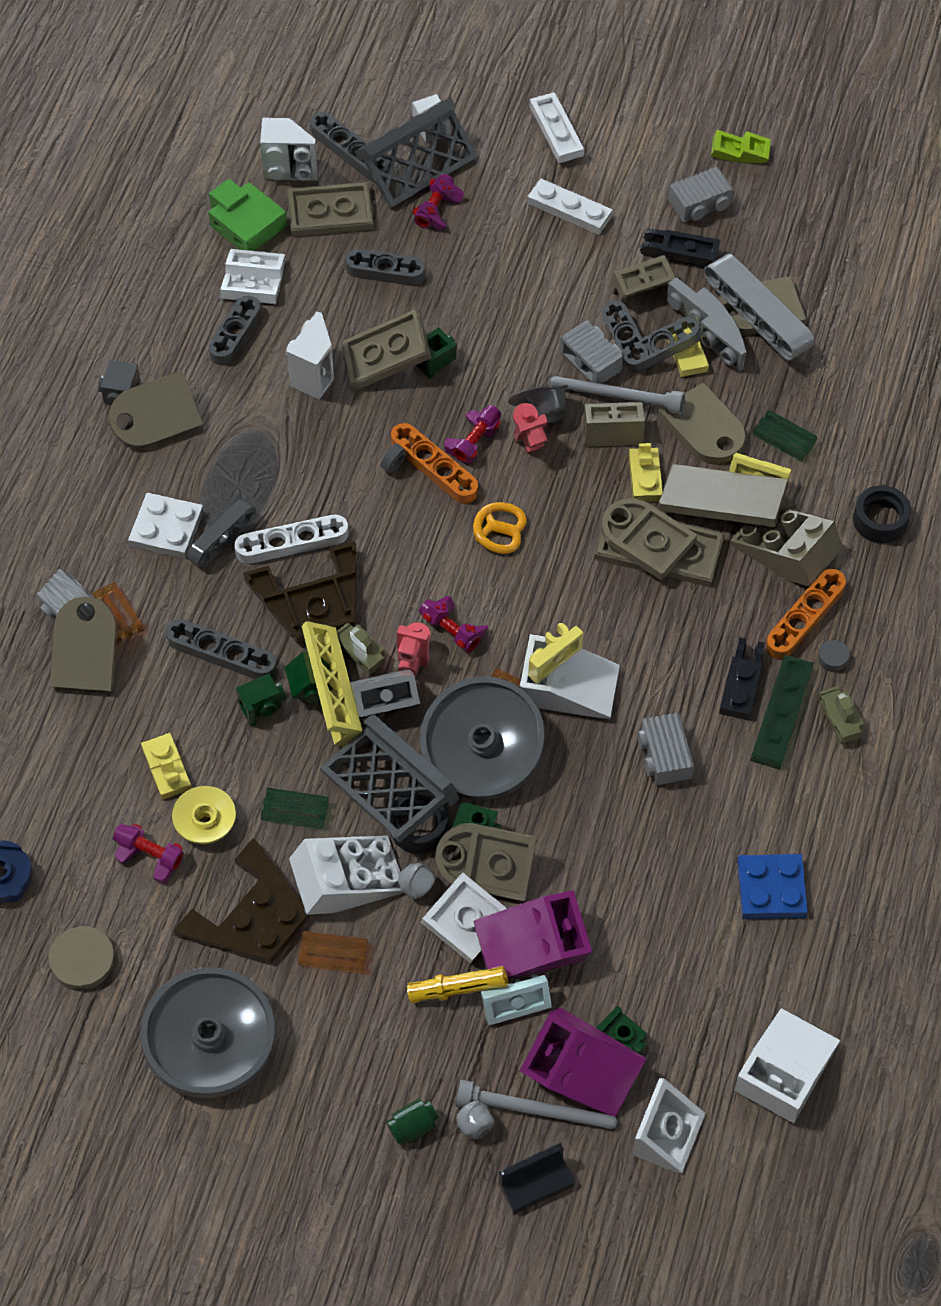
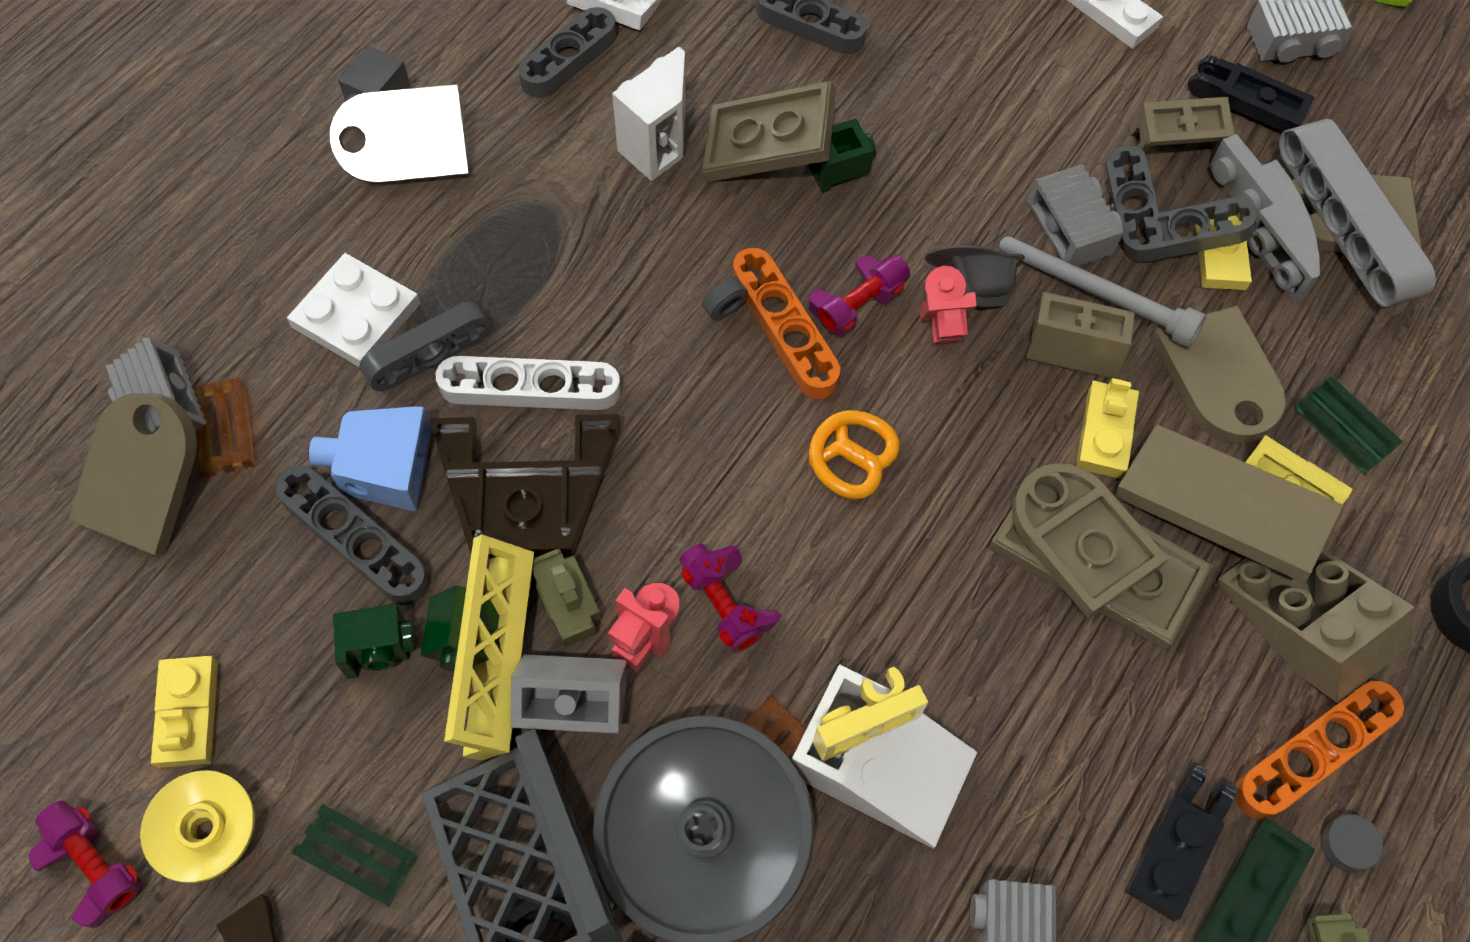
camera: 15 degrees right, 5 degrees up
(220, 602) = (378, 455): none -> light blue torso

